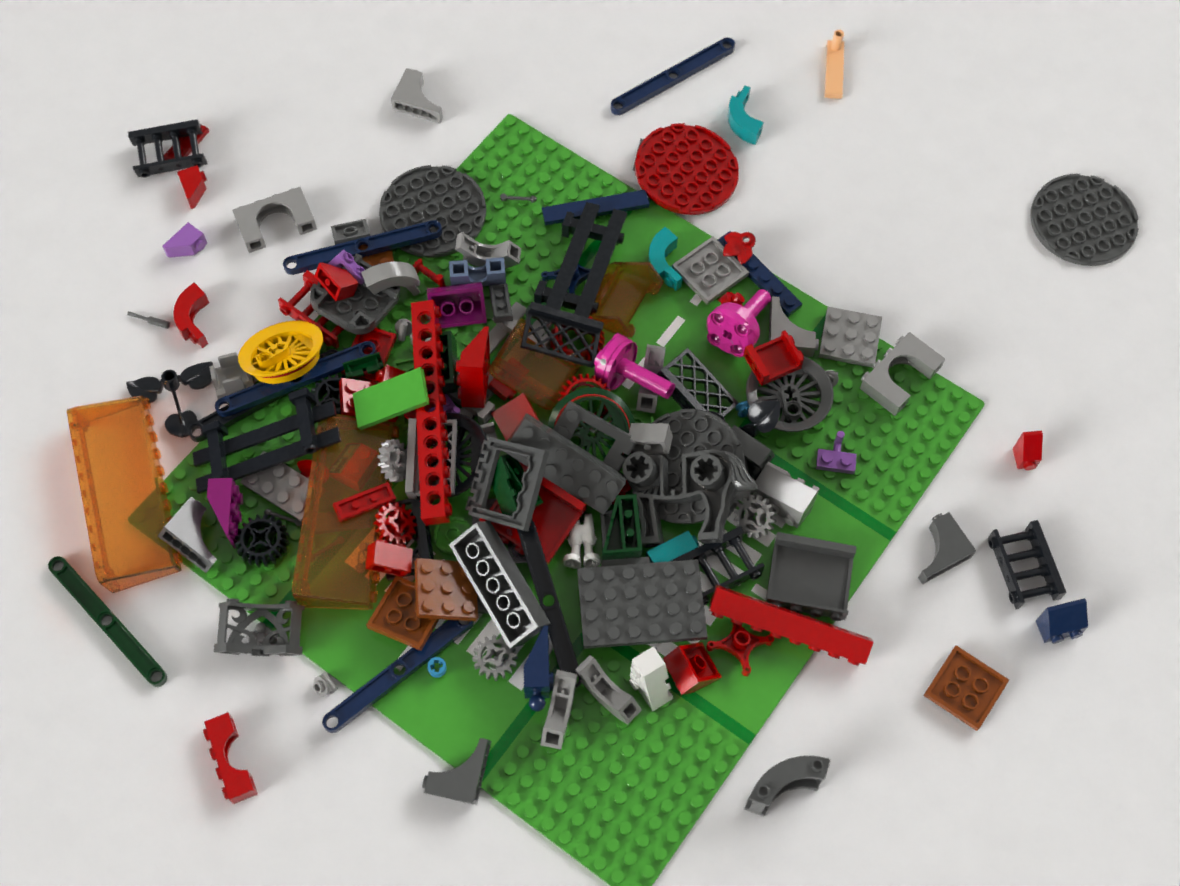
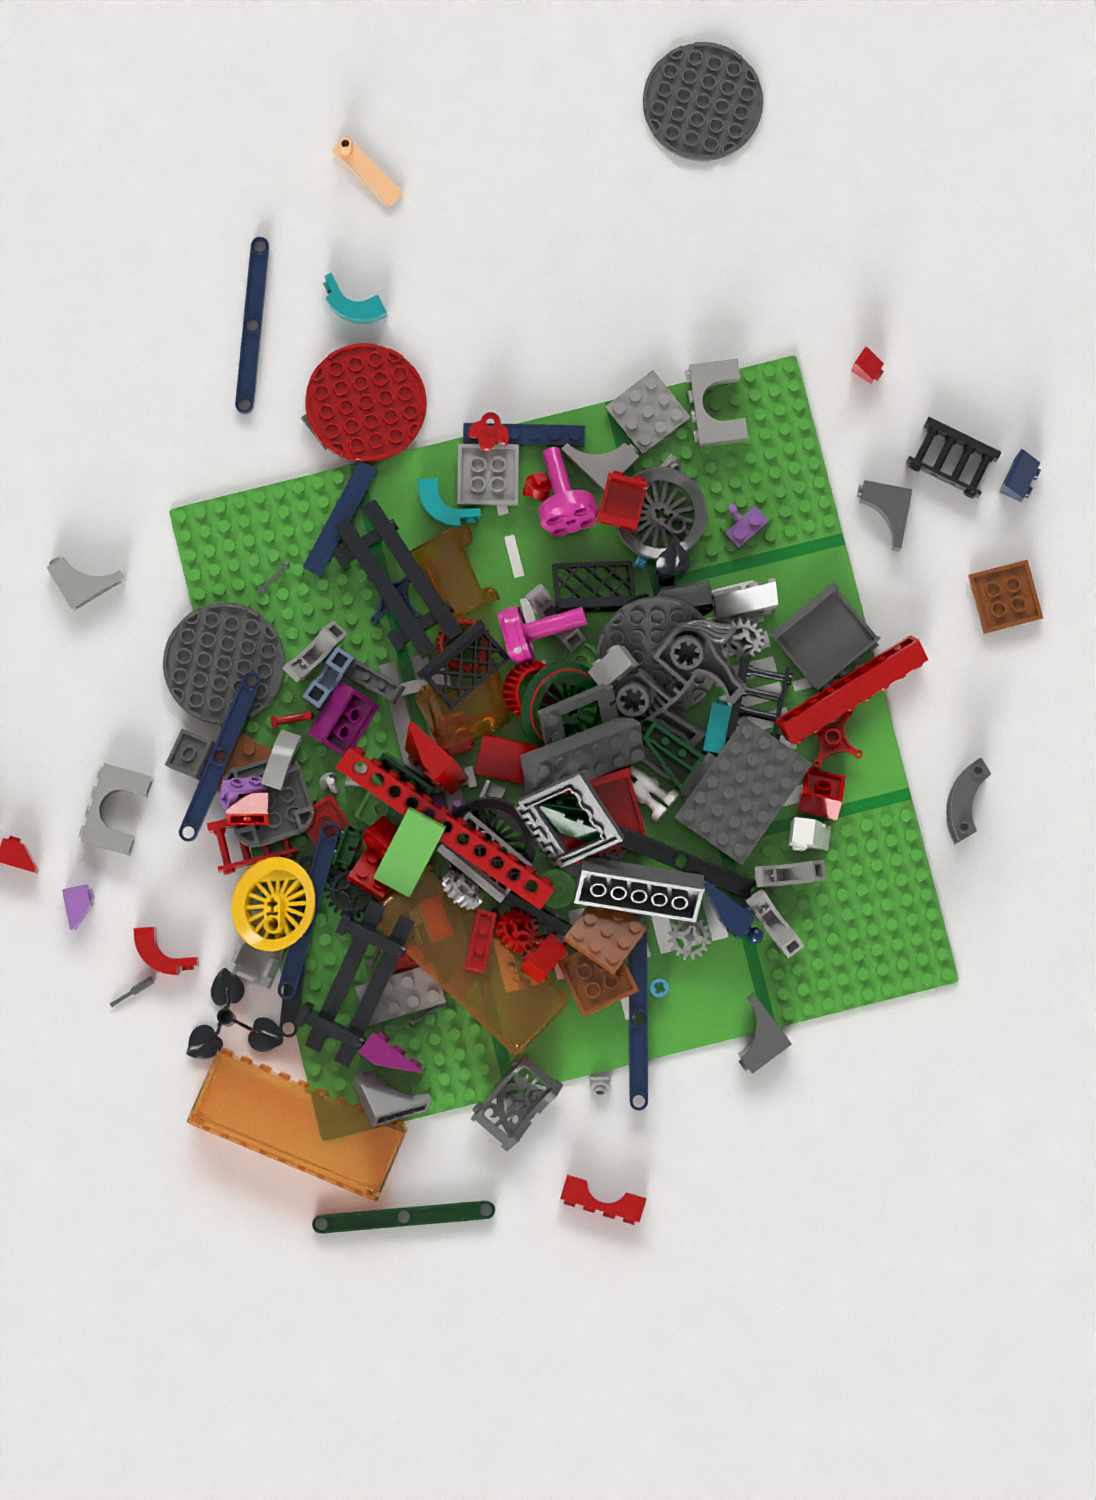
camera: 50 degrees left, 20 degrees up
(270, 528) = (434, 1027): black gear -> none

